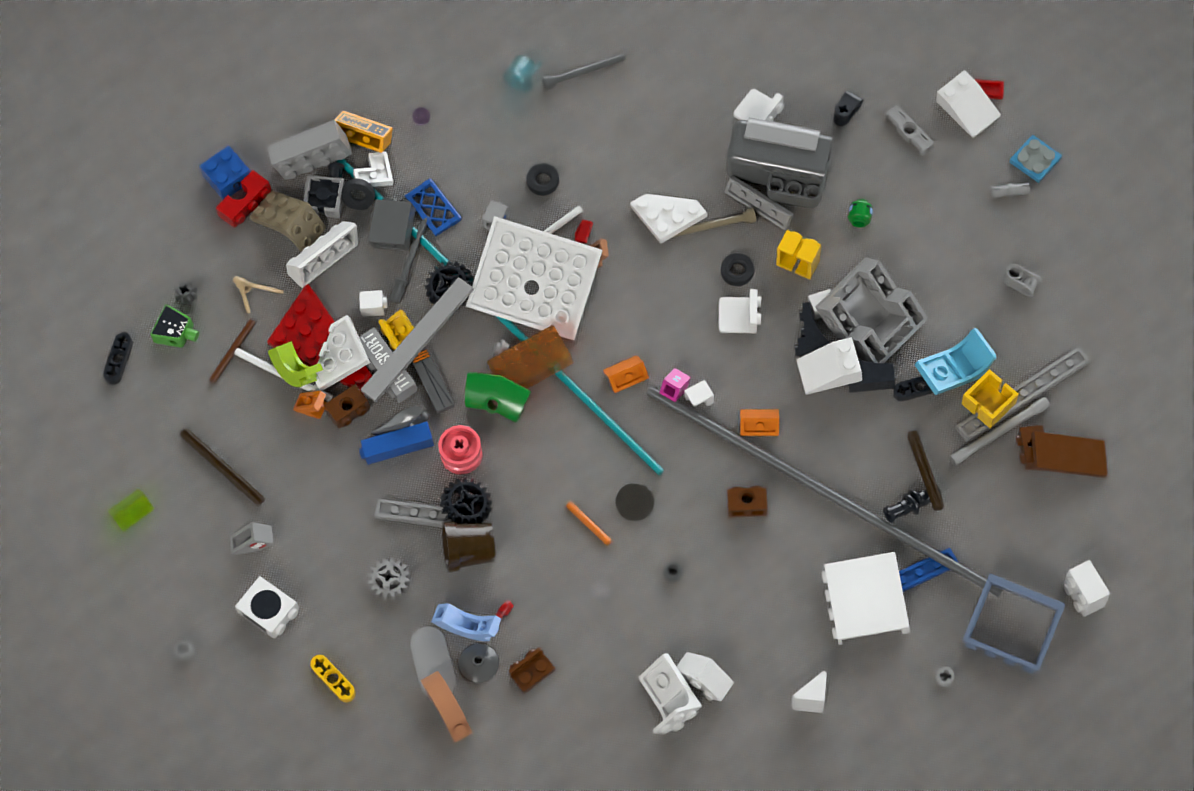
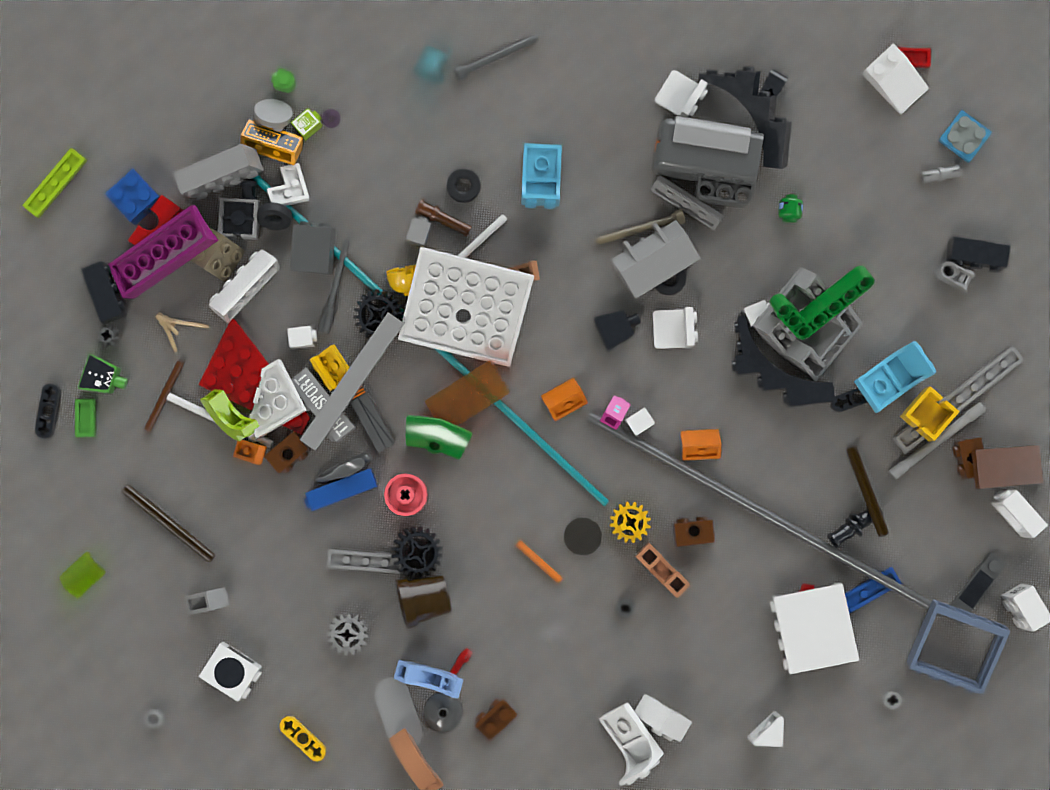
camera: 15 degrees left, 20 degrees up
(152, 158) = (54, 183): none -> lime plate
(153, 367) = (85, 418): none -> bright green tile
(187, 254) = (104, 292): none -> black brick
(247, 217) = (161, 253): none -> magenta arch
(366, 107) = (272, 114): none -> light grey tile
(380, 82) = (283, 80): none -> bright green plate
(398, 118) = (307, 123): none -> lime brick
(446, 223) = (357, 207): blue window -> none
(472, 253) = (401, 279): none -> yellow cylinder
(500, 347) = (437, 380): light grey plate -> none
(512, 201) = (435, 214): none -> reddish brown pin
(583, 231) = (509, 242): red piece -> none
(618, 173) = (541, 175): none -> medium azure bracket
(667, 215) = (594, 220): white plate -> none
(681, 310) = (615, 328): none -> black torso
(687, 481) = (637, 517): none -> yellow gear
(720, 542) = (662, 570): none -> nougat arch
(723, 247) = (655, 258): none -> light grey piece
(795, 247) = (741, 264): yellow piece -> none
(830, 367) = (770, 391): white slope -> none
(846, 139) = (745, 87): none -> black arch
(883, 290) = (825, 306): none -> green beam
(902, 121) = (829, 99): light grey piece -> none
(1038, 571) = (978, 584): none -> plate
(1046, 260) = (978, 254): none -> black brick
(1079, 498) = (1018, 513): none -> white window

